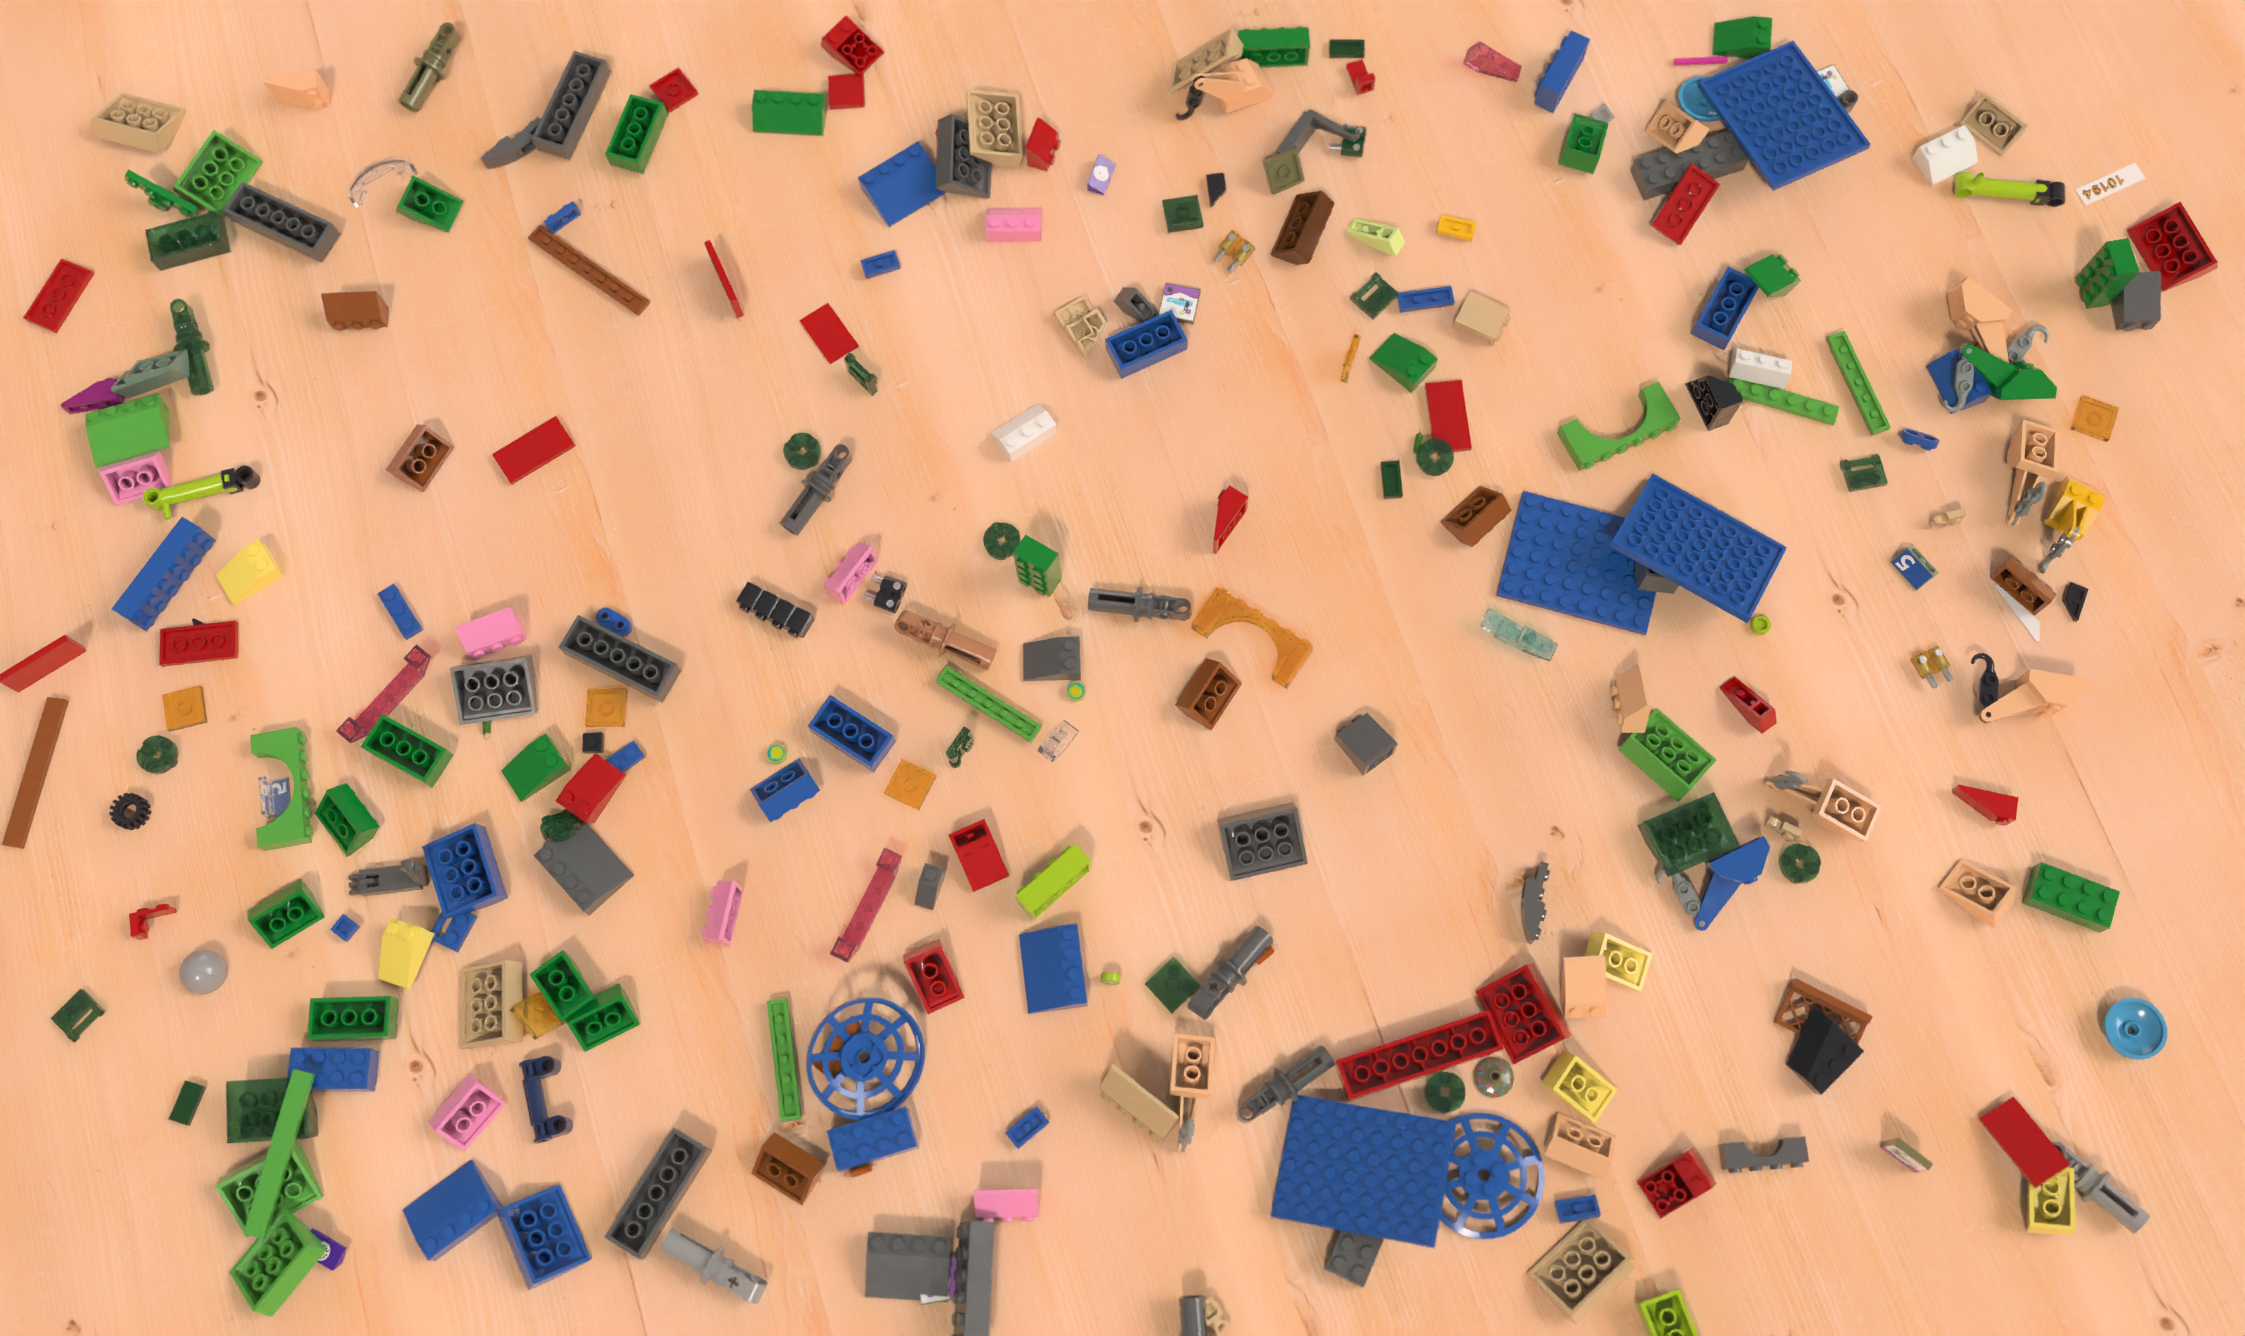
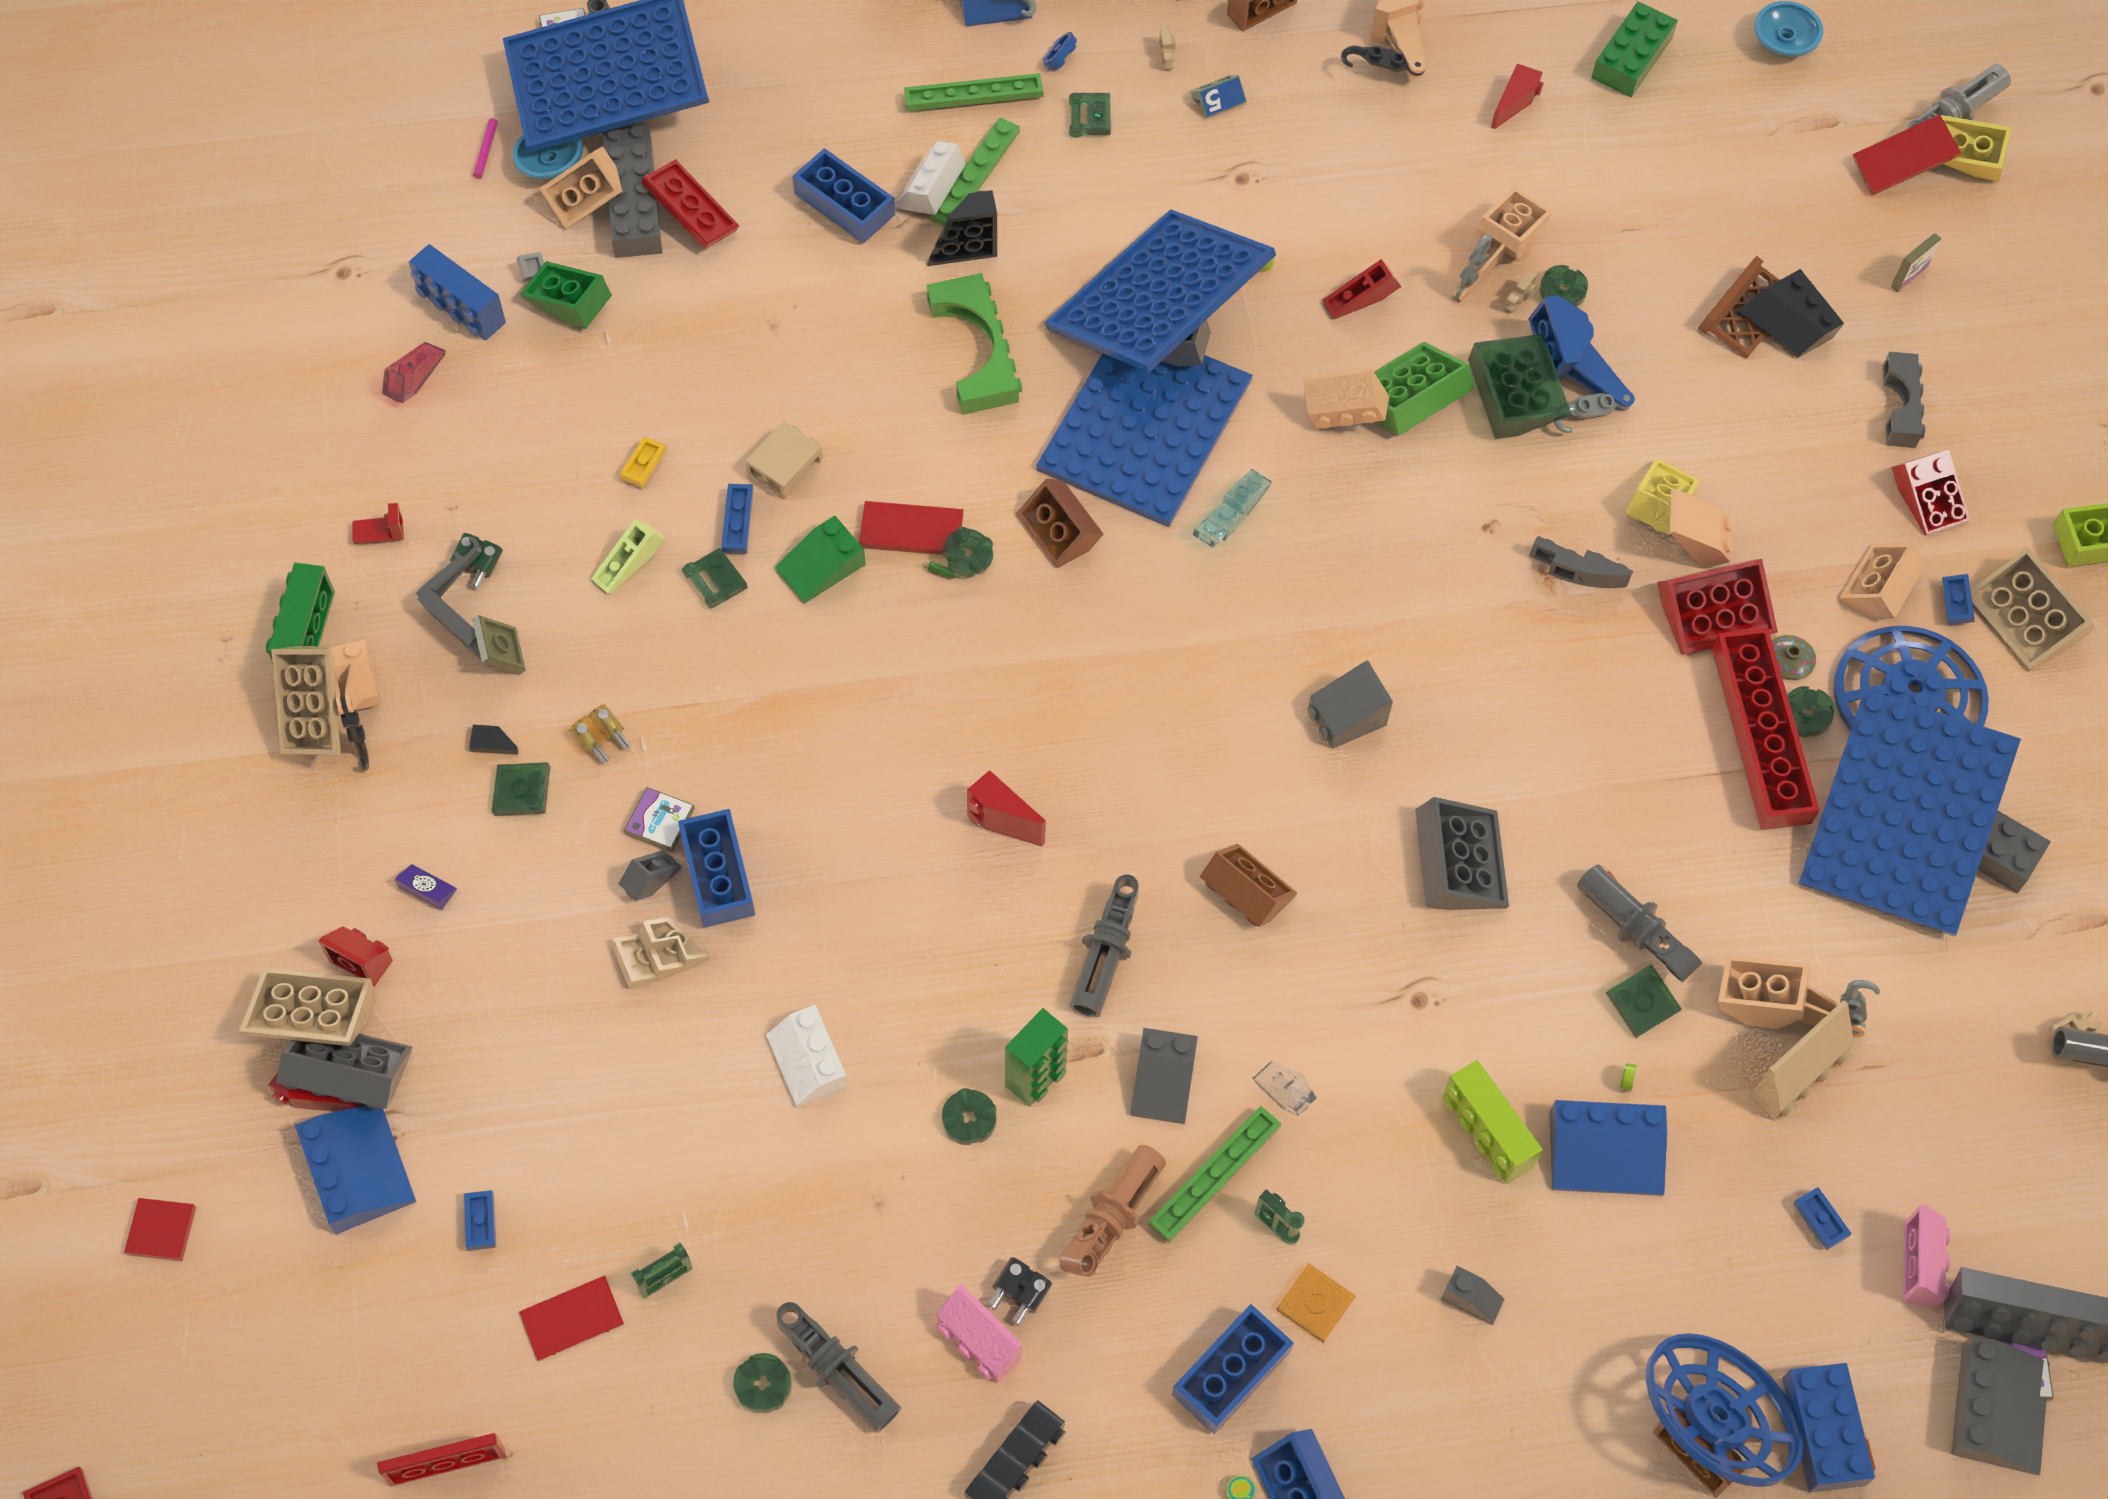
camera: 85 degrees left, 10 degrees down
(788, 112) = (171, 1322): green slope -> none
(851, 46) = (87, 1206): red slope -> none
(869, 906) = (1492, 1389): clear pink slope -> none
(933, 976) = (1601, 1310): red slope -> none
(978, 855) = (1435, 1220): red slope -> none
(1013, 224) = (468, 1016): bright pink slope -> none
(1076, 691) = (1214, 1054): lime tile -> none
(1224, 609) = (1205, 773): clear yellow arch -> none
(1280, 1089) = (1791, 888): dark grey piece -> none
(1303, 228) = (589, 641): reddish brown slope -> none
(1346, 48) = (327, 538): dark green tile -> none
(1350, 358) = (806, 617): clear yellow tile -> none
(1391, 479) = (985, 611): dark green tile -> none
(1579, 1086) = (1810, 567): light yellow slope -> none
(1742, 37) = (470, 95): green slope -> none
(1773, 275) = (816, 133): green slope -> none
(1931, 663) = (1341, 107): clear yellow piece -> none
(1979, 892) = (1619, 128): light nougat slope -> none
(2026, 618) = (1299, 10): white sticker -> none

